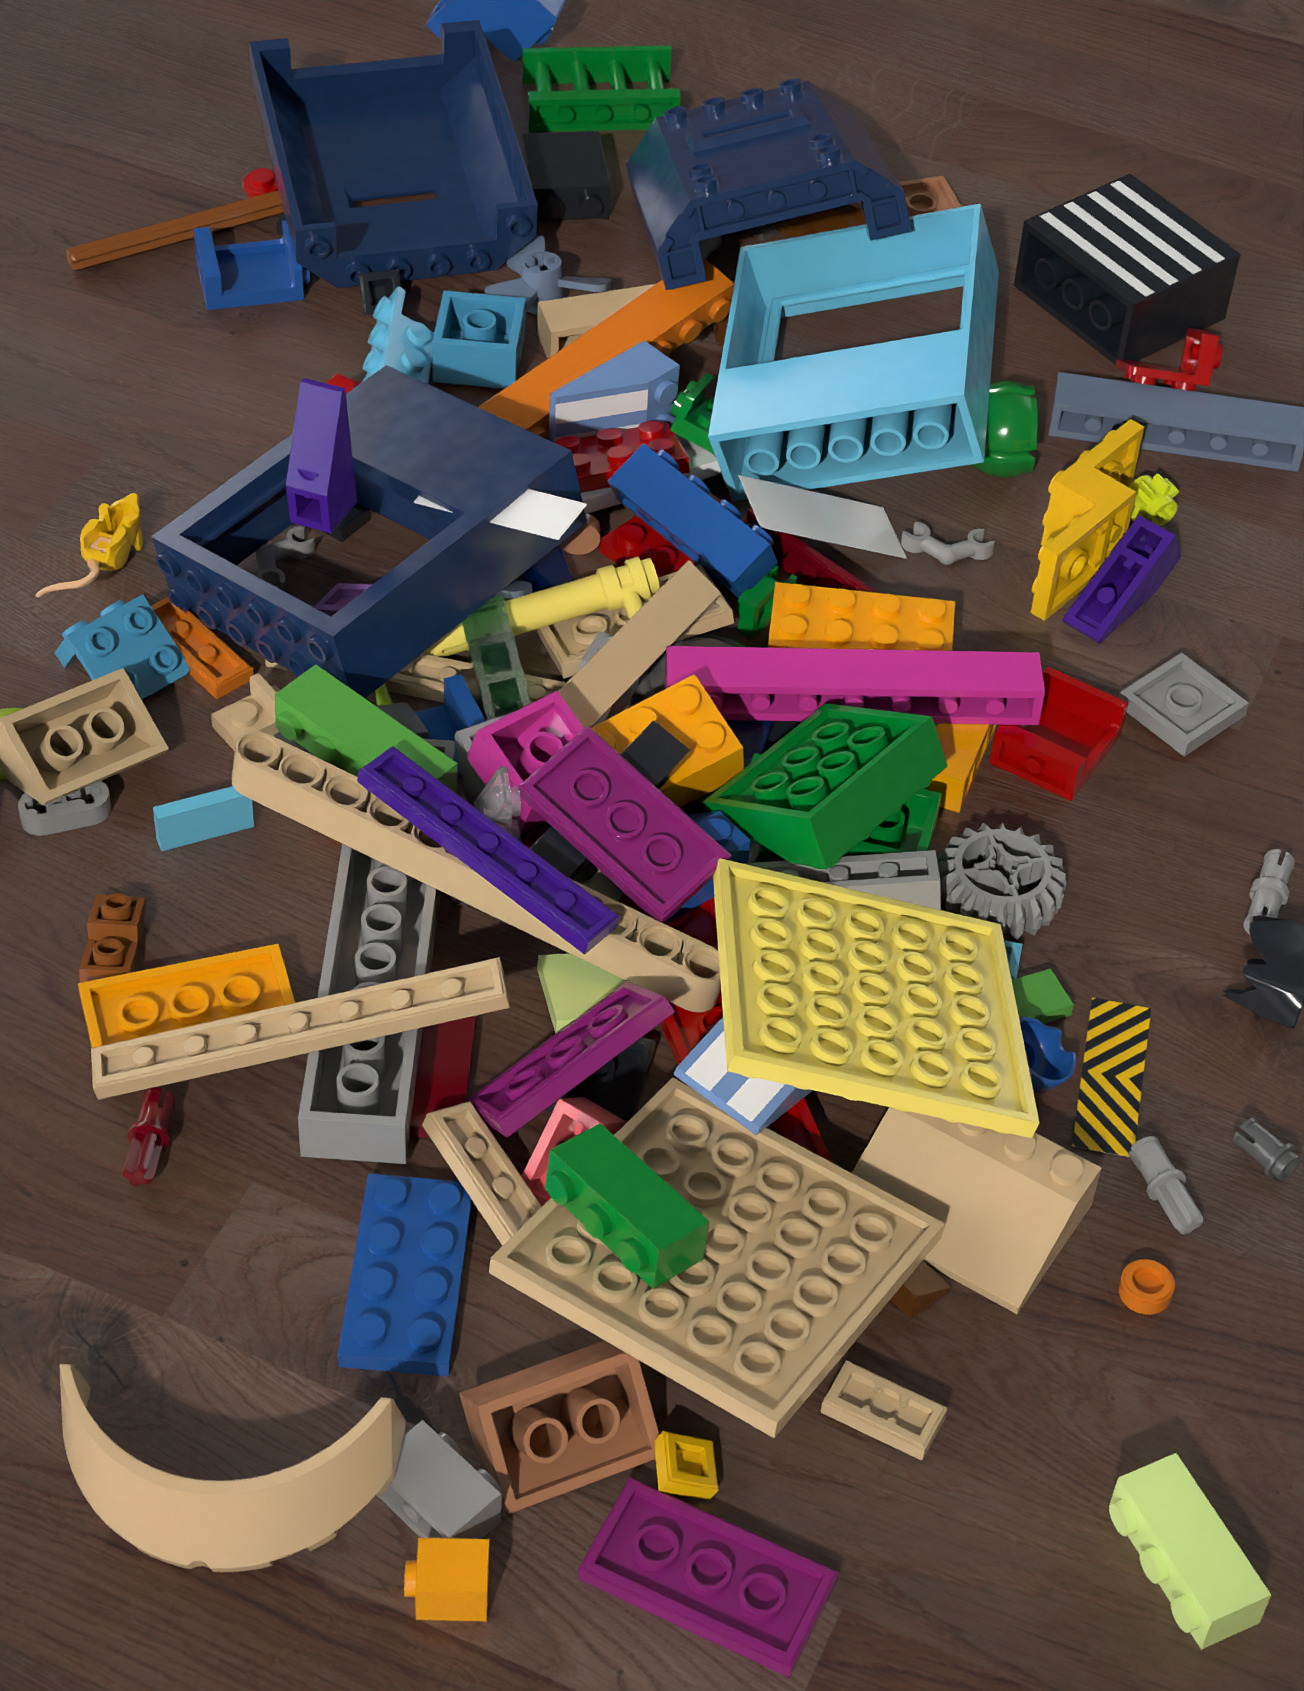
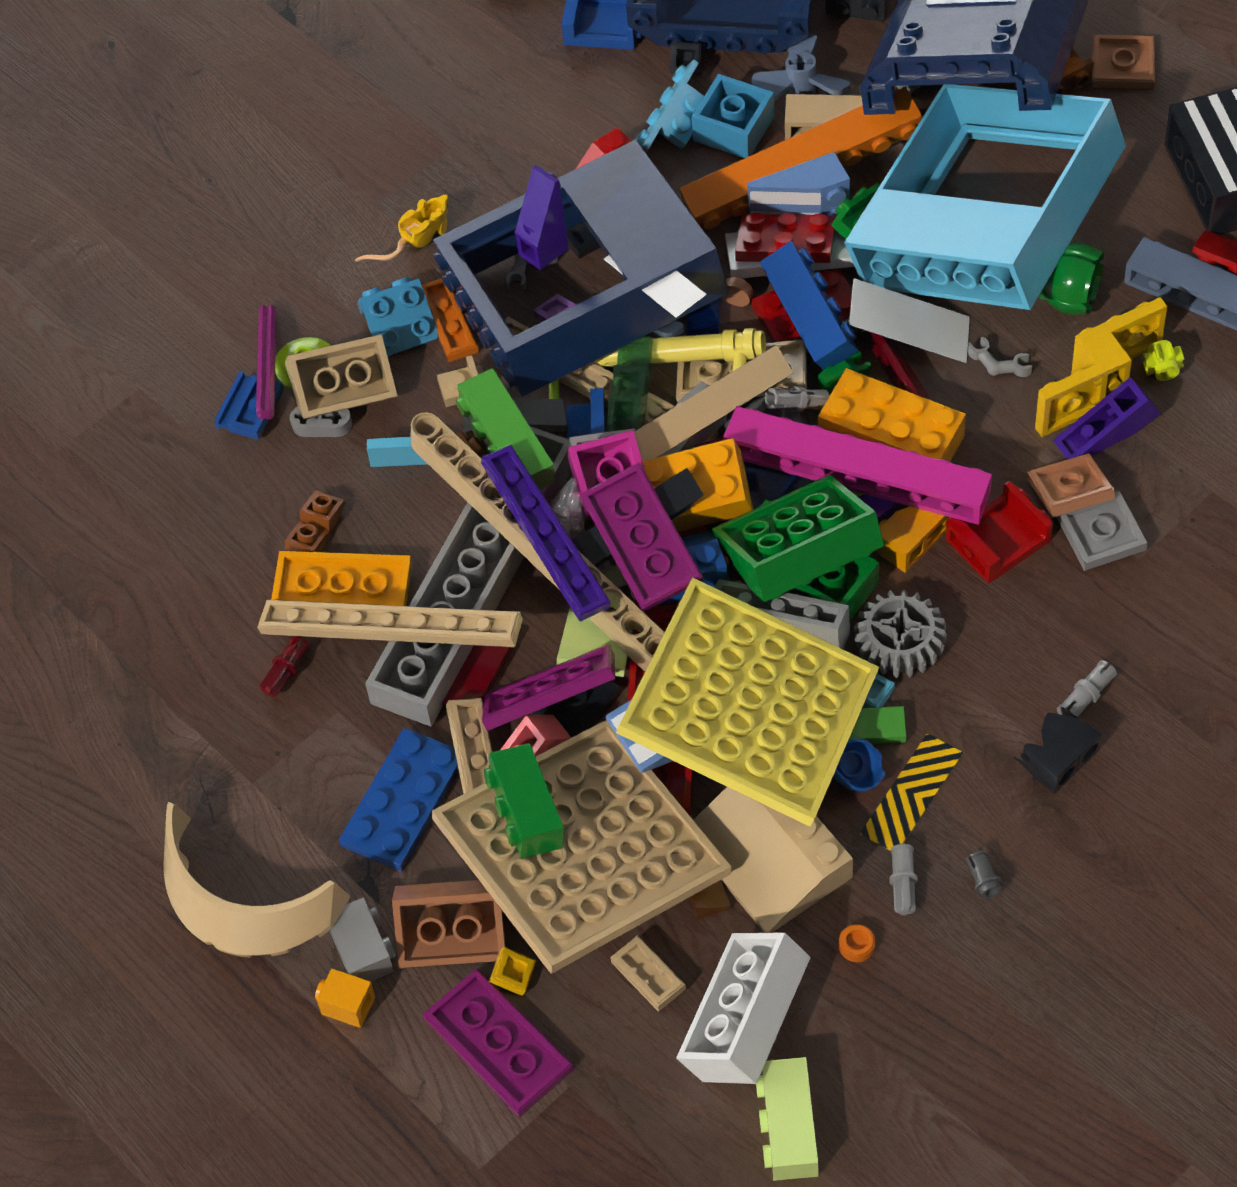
camera: 30 degrees right, 10 degrees up
(729, 630) = (796, 399): none -> light grey pin
(1057, 1412) = (743, 1008): none -> white brick
(1119, 660) = (1071, 485): none -> nougat tile

